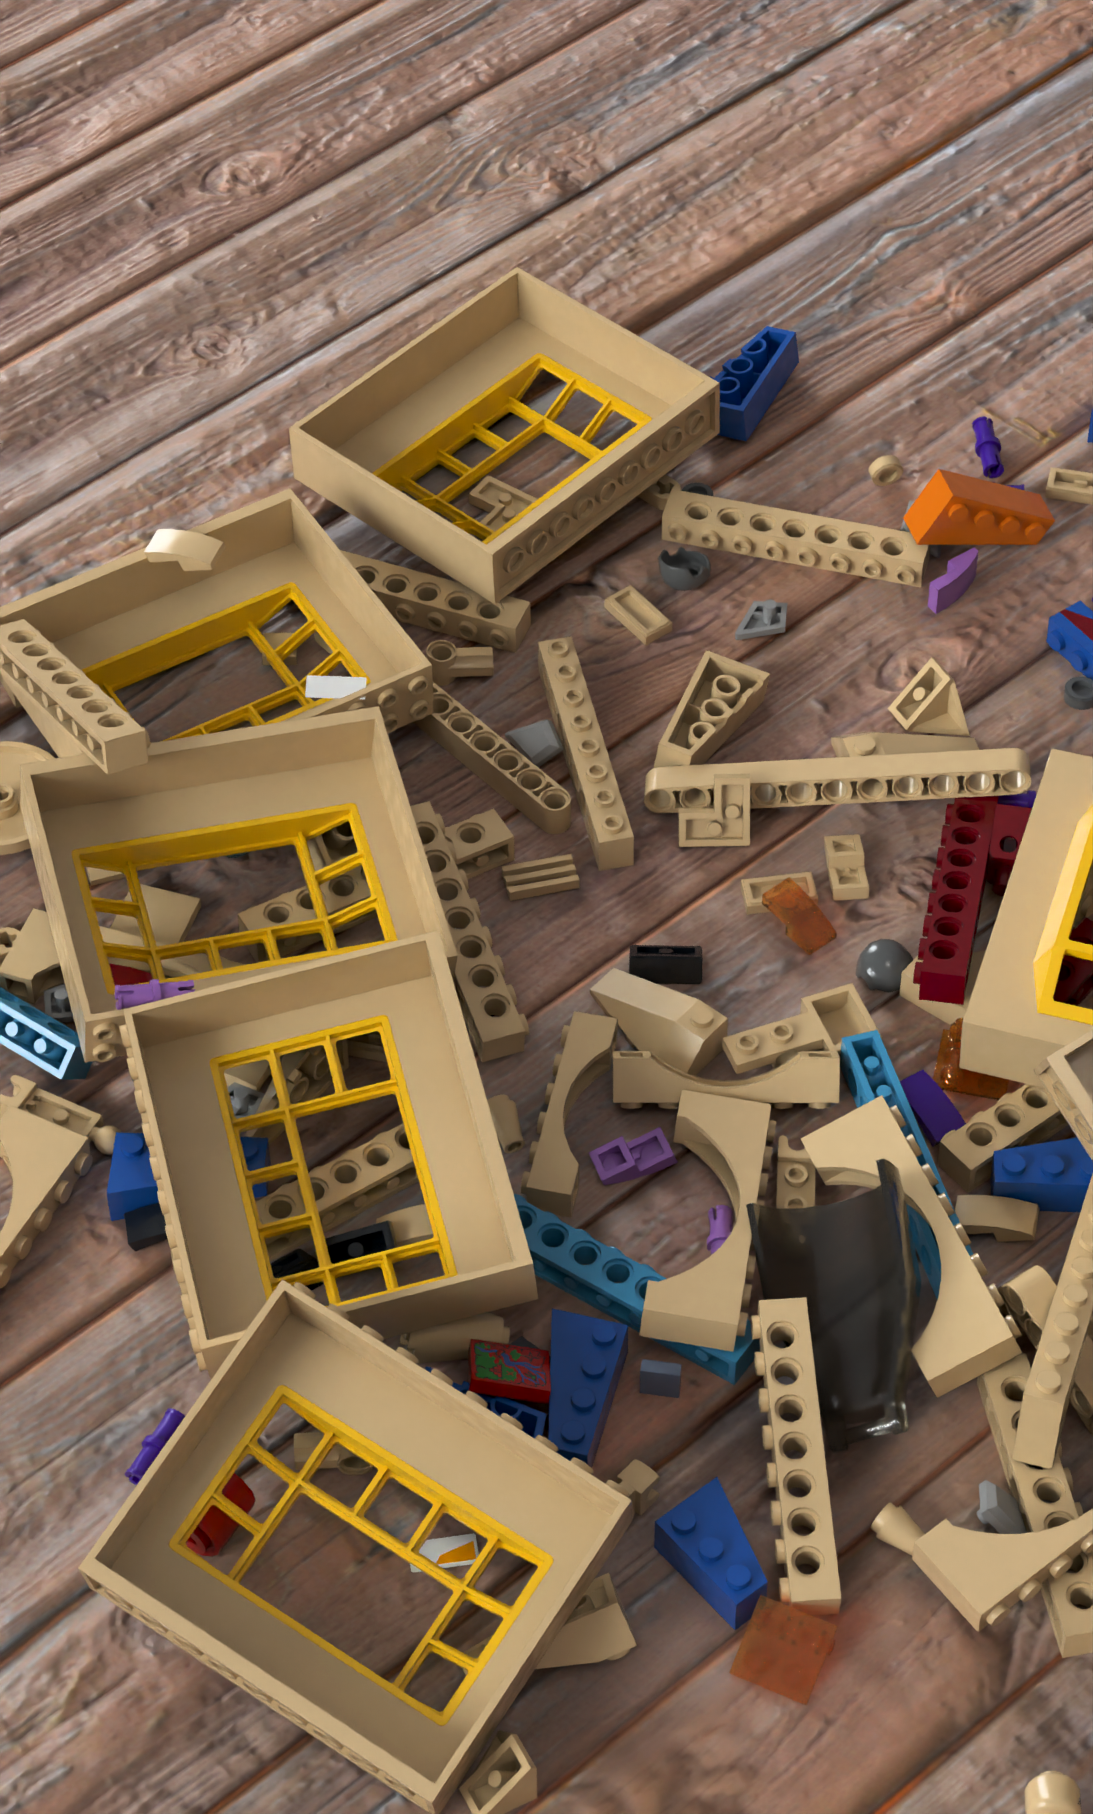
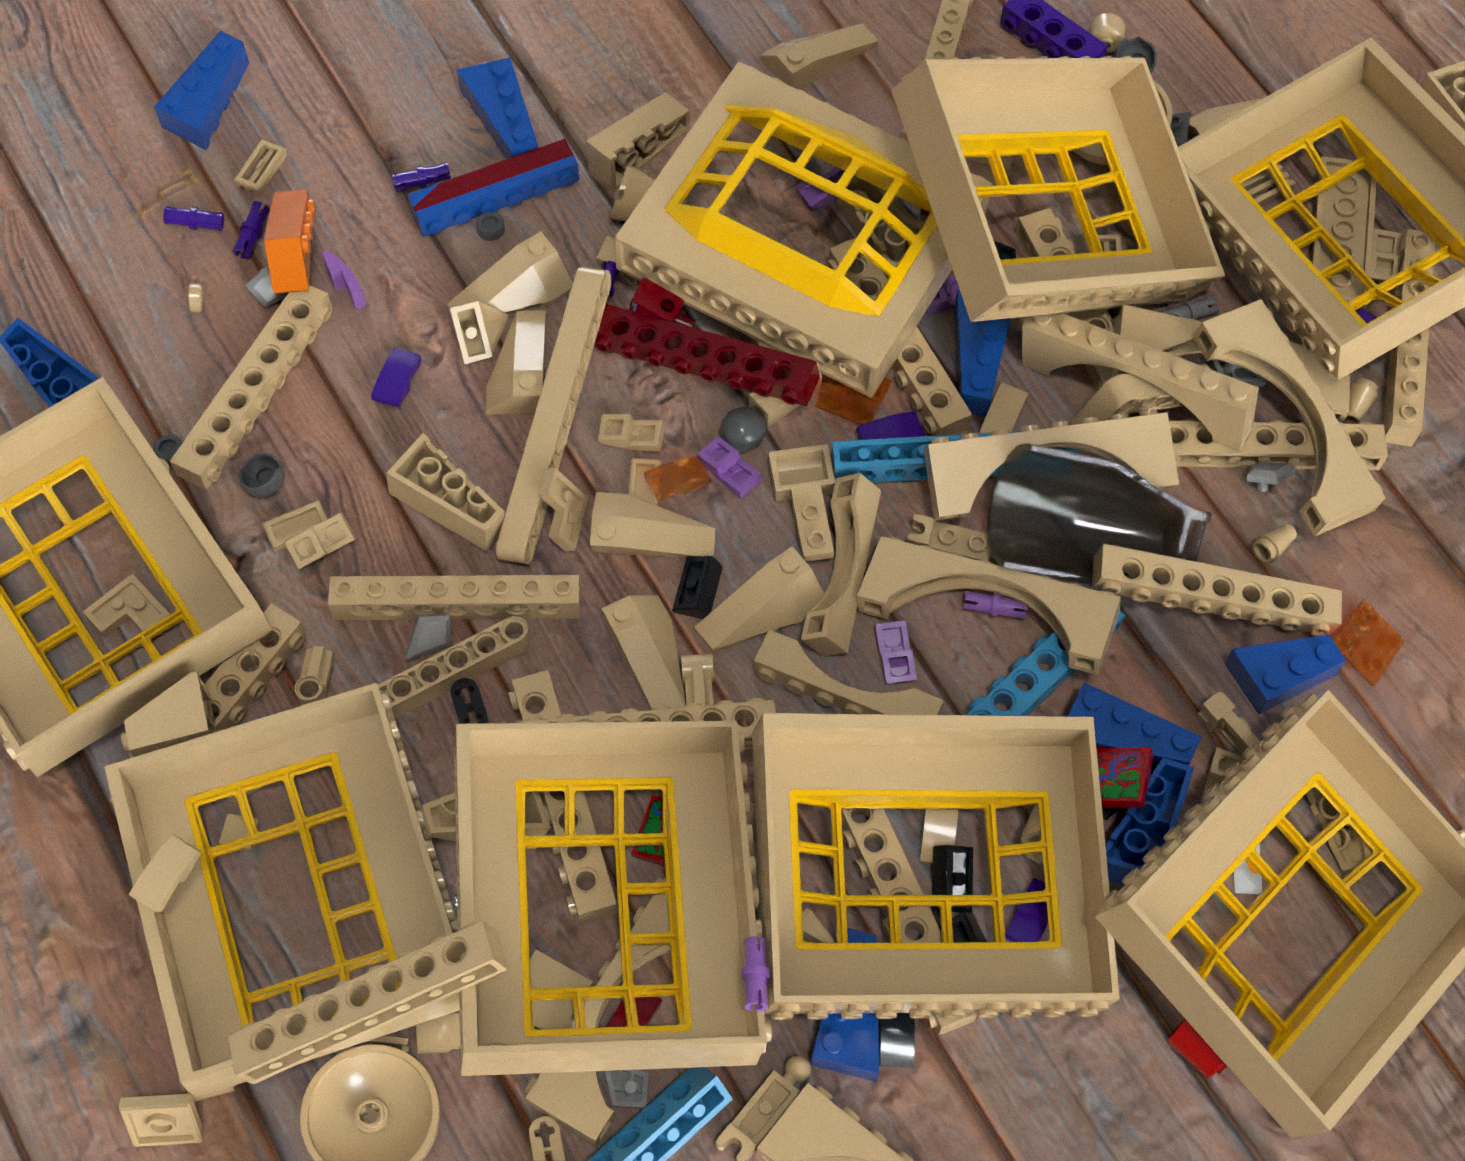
camera: 80 degrees left, 15 degrees up
(154, 1444) = (1129, 1072): dark purple pin -> none
(333, 686) = (377, 771): white sticker -> none
(368, 539) = (170, 718): none -> tan slope
(463, 793) = (476, 701): none -> black beam
(539, 872) = (580, 639): tan tile -> none
(550, 975) = (698, 678): none -> tan piece
(578, 921) = (648, 647): none -> tan wedge
(622, 632) = (320, 540): none -> tan slope
(660, 1378) = (1118, 674): sand blue tile -> none
(720, 889) = (640, 528): none -> tan wedge
(762, 620) = (337, 430): light grey piece -> none
(831, 963) = (728, 467): none -> medium lavender slope
(837, 649) = (395, 377): none -> dark purple slope
(1013, 721) = (521, 278): none -> tan wedge

